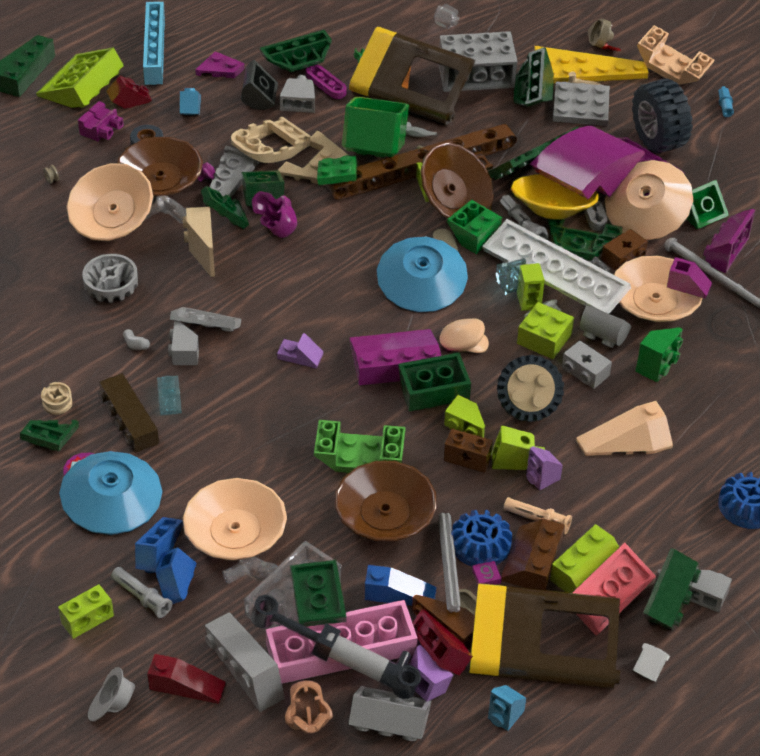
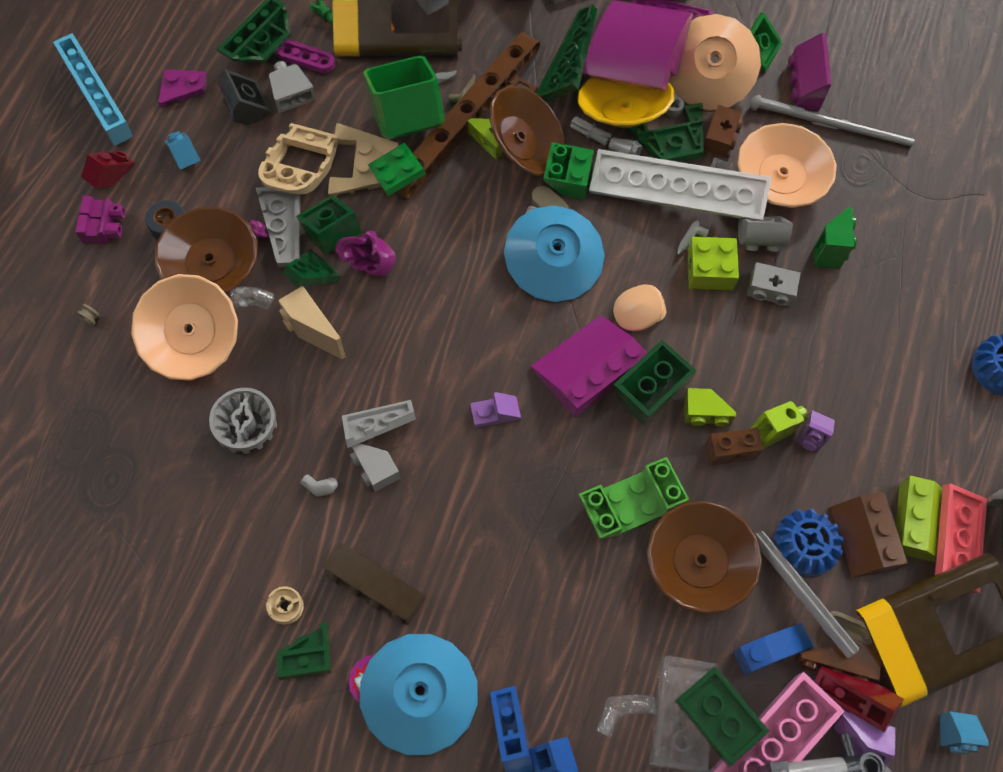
camera: 30 degrees left, 20 degrees up
(82, 78) = (39, 170): lime slope -> none
(169, 395) = (398, 535): clear light blue slope -> none
(234, 519) = (578, 637): light nougat dish -> none
(486, 573) = (837, 581): magenta tile -> none
(507, 275) = (640, 212): clear light blue slope -> none
(513, 506) = (851, 484): light nougat pin -> none
(530, 285) = (671, 220): lime brick -> none
(530, 388) = (752, 346): wheel -> none
(636, 430) = (865, 341): light nougat wedge -> none
(688, 278) = (816, 144): magenta slope -> none

